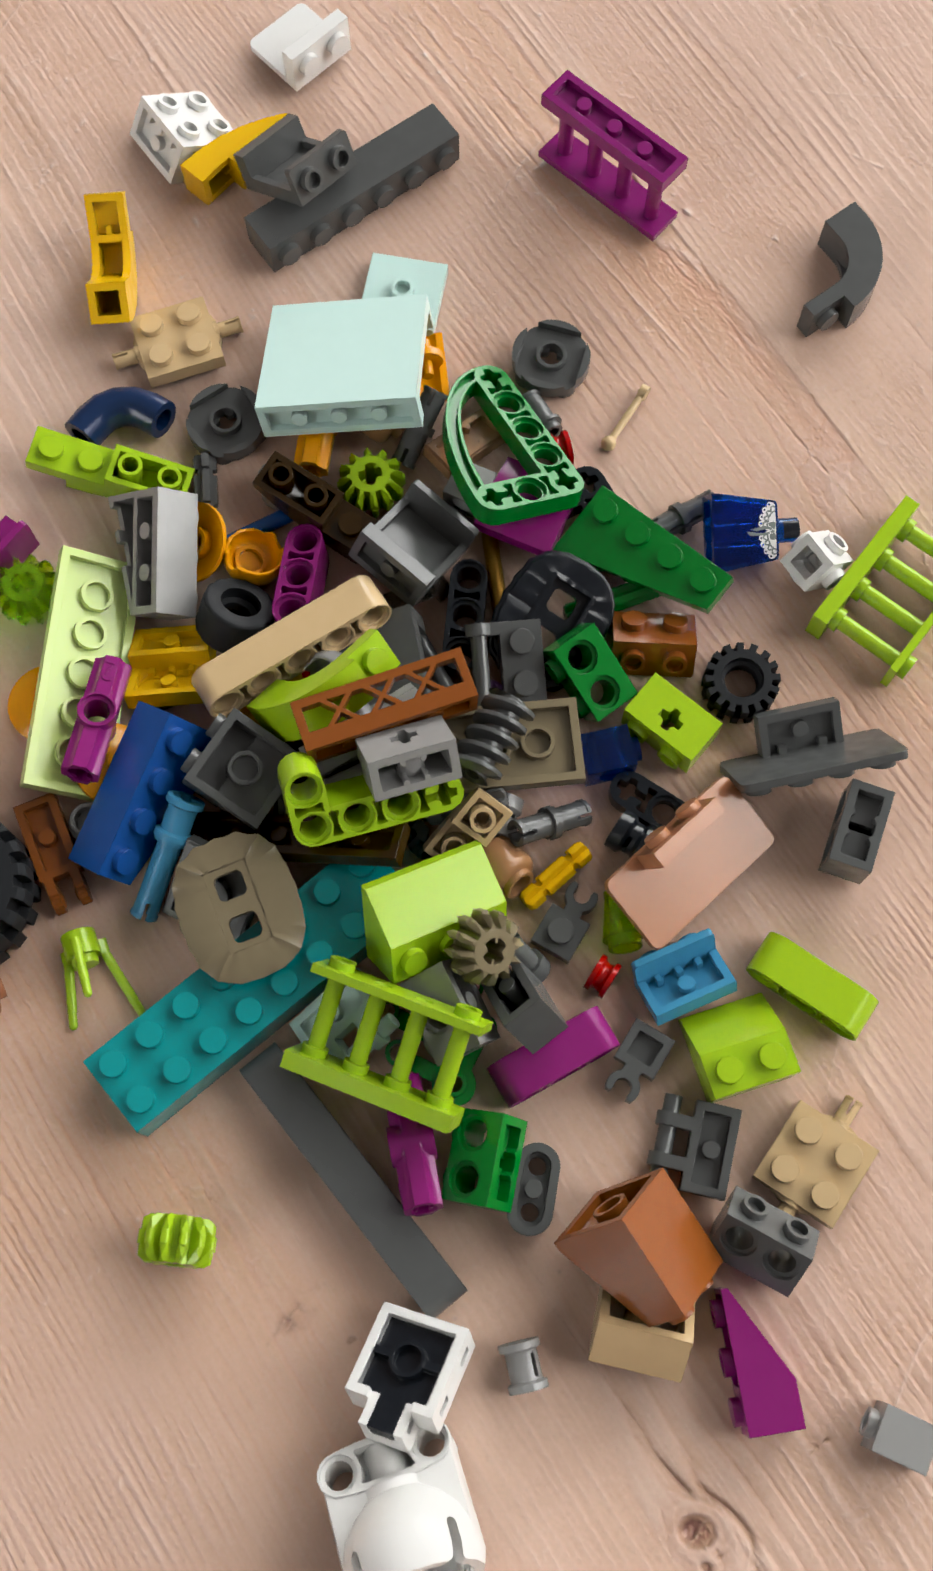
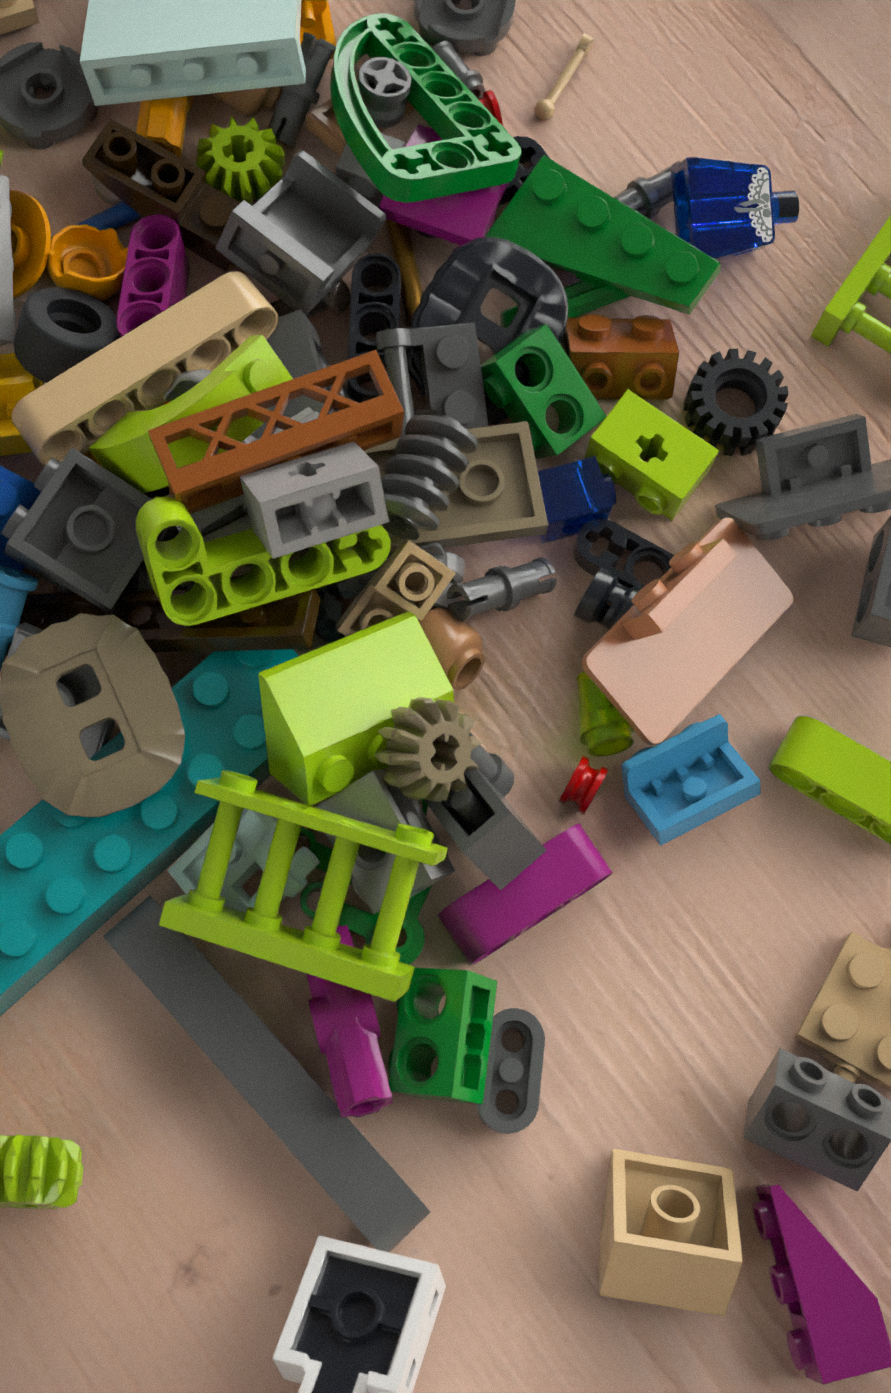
camera: 15 degrees left, 0 degrees up
(206, 483) = (16, 163): dark grey axle -> none
(479, 421) = (384, 90): none -> dark grey wheel
(523, 1366) = (512, 1309): light grey bush -> none
(555, 875) = (512, 658): yellow axle -> none
(562, 928) = (526, 725): dark grey plate -> none
(641, 1054) = (641, 885): dark grey plate -> none
(643, 1248) = (665, 1139): dark orange slope -> none
(708, 1150) = (737, 1003): dark grey plate -> none
(738, 1047) = (767, 868): lime slope -> none
(817, 560) = (807, 243): white brick -> none

